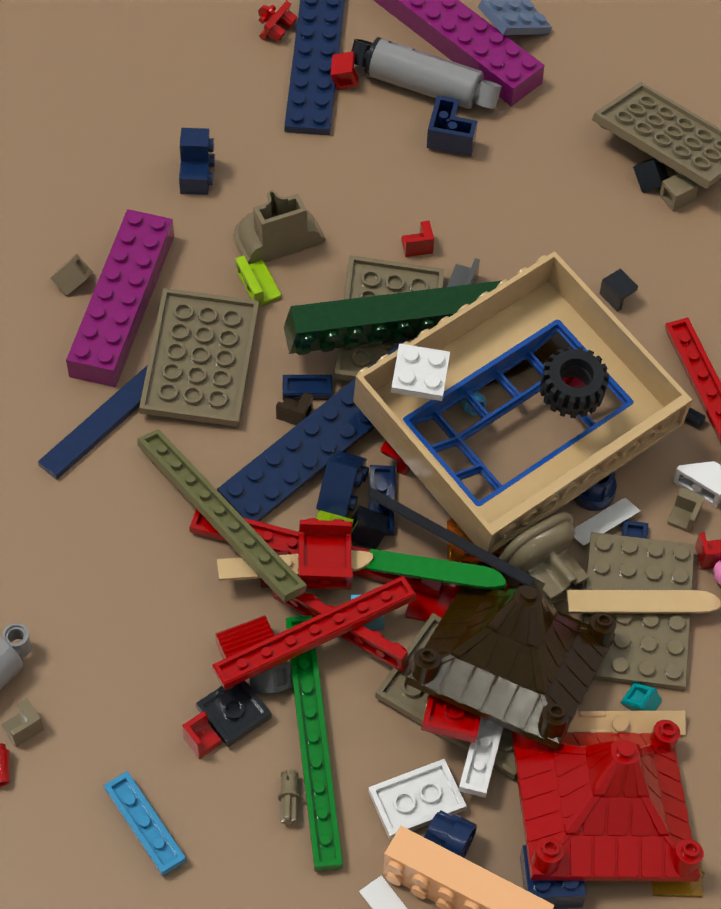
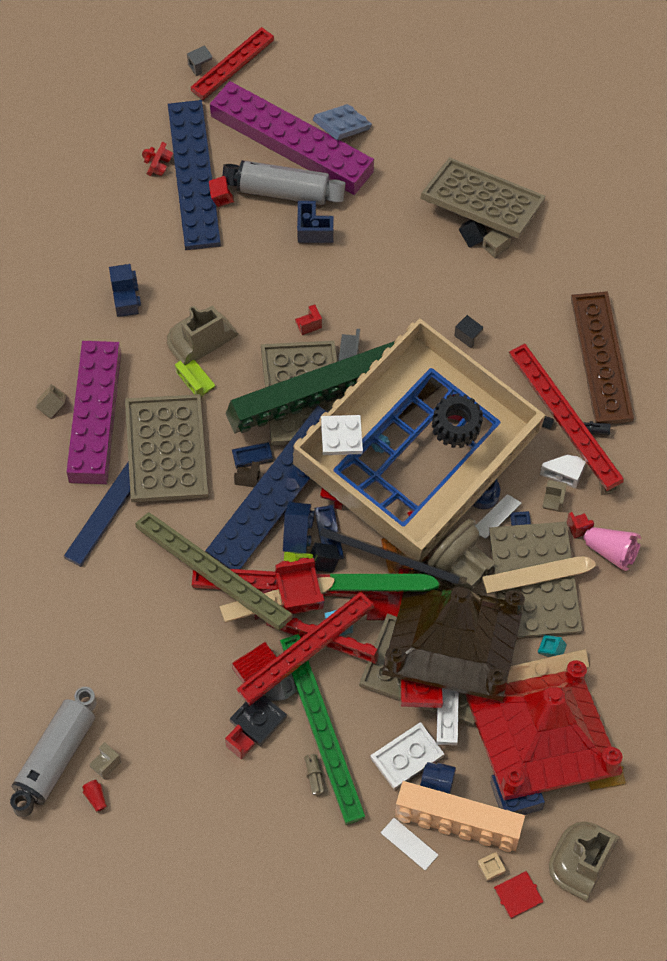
camera: 10 degrees left, 5 degrees up
(145, 823) = (214, 816): dark azure plate -> none

